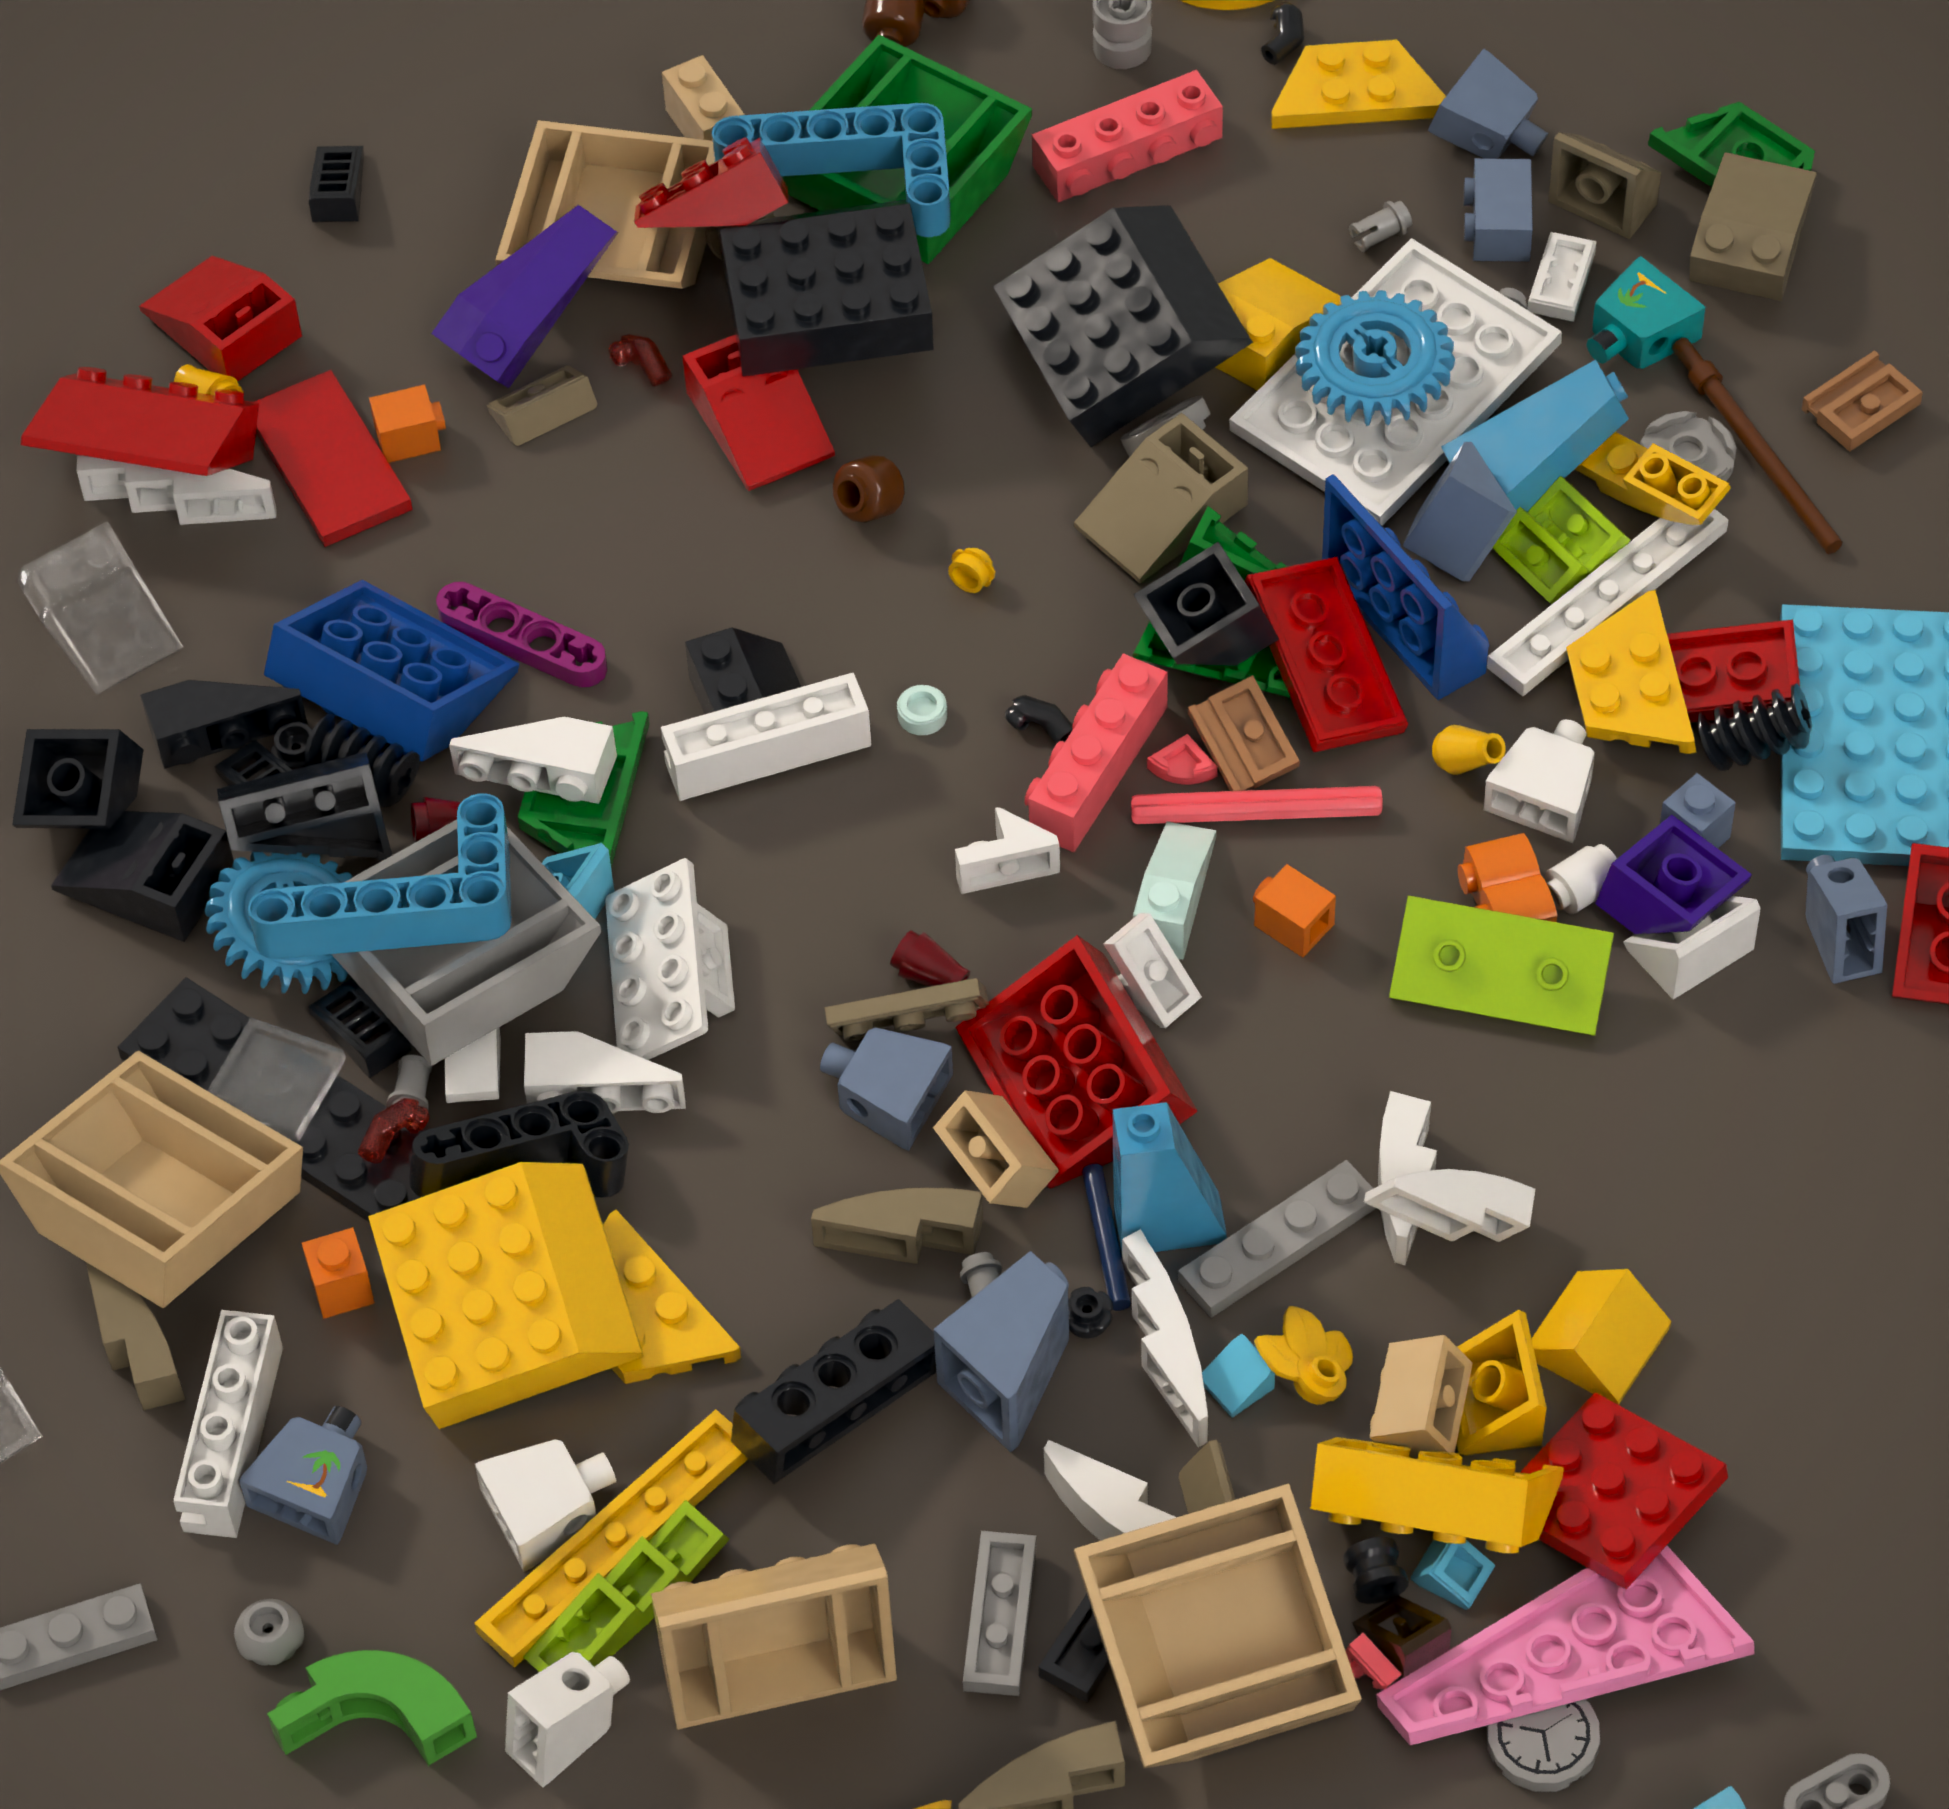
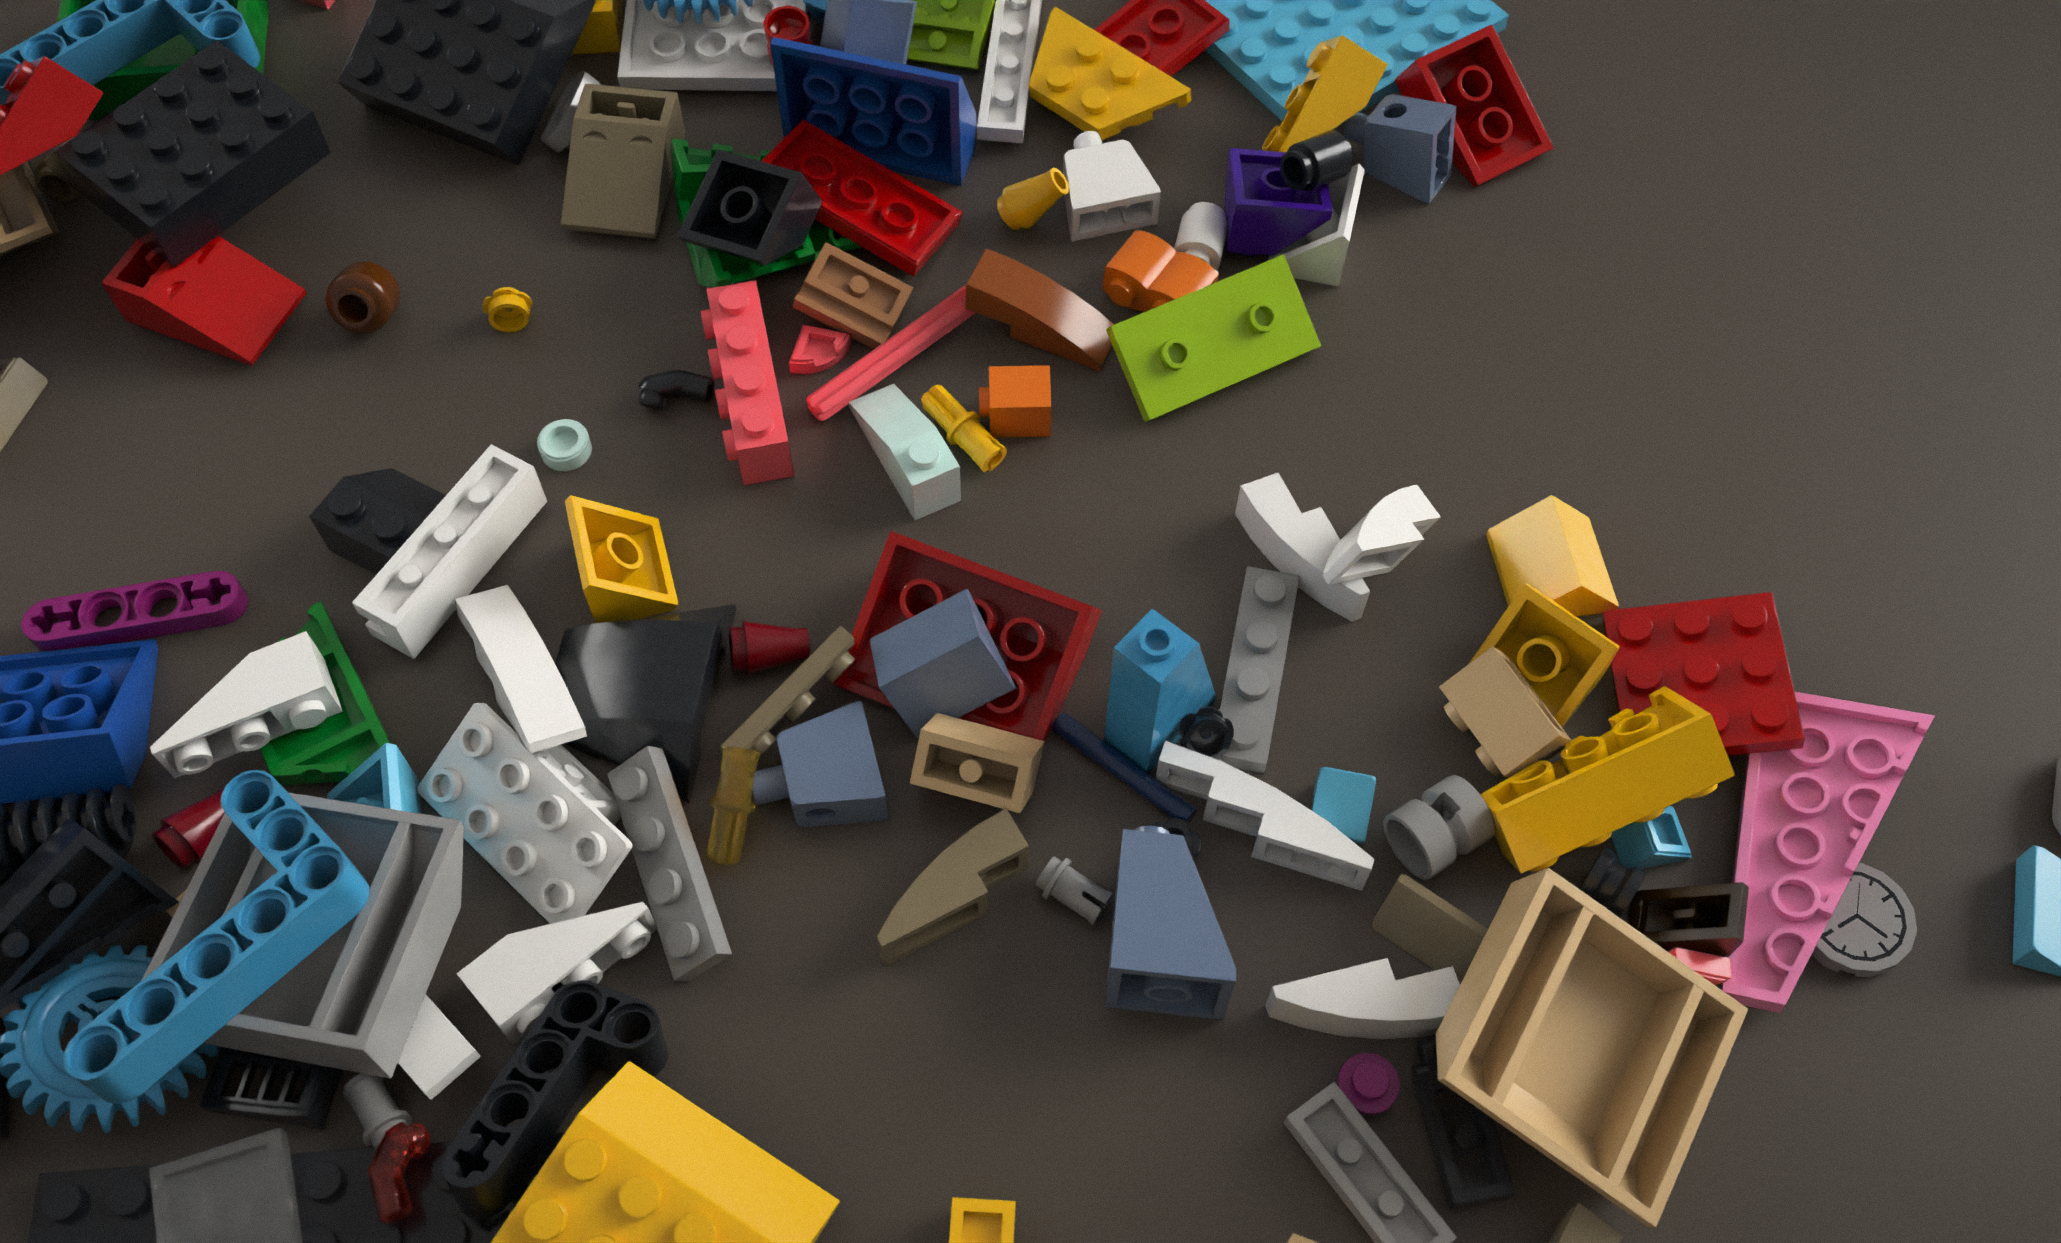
camera: 45 degrees left, 5 degrees up
(641, 352) = (55, 310): clear red arm -> none
(666, 1315) = (820, 1139): yellow wing -> none
(725, 1065) = (669, 864): none -> light grey plate
(739, 854) = (520, 669): none -> white slope
(801, 1054) = (732, 804): none -> clear yellow axle
(812, 932) = (646, 685): none -> black wedge
(825, 1414) = (1046, 1185): black brick -> none
(878, 826) = (620, 561): none -> yellow slope
(1017, 855) = (753, 506): white slope -> none
(1033, 1060) = (940, 663): none -> sand blue slope
(1057, 1561) = (1369, 1083): none -> magenta plate
(1151, 971) = (958, 522): white slope -> none
(1166, 1249) = (1207, 718): none -> black plate
(1232, 902) = (963, 428): none -> yellow axle
(1284, 1436) = (1440, 826): none -> light grey wheel
(1308, 1356) = (1382, 746): yellow plate -> none
(1379, 842) = (1038, 310): none -> dark orange slope
(1390, 476) = (787, 24): none -> red wheel
(1702, 809) = (1235, 130): sand blue brick -> none
(1716, 873) = (1316, 161): none -> black brick
(1757, 730) = (1220, 52): black piece -> none
(1815, 826) = (1334, 90): none -> yellow slope

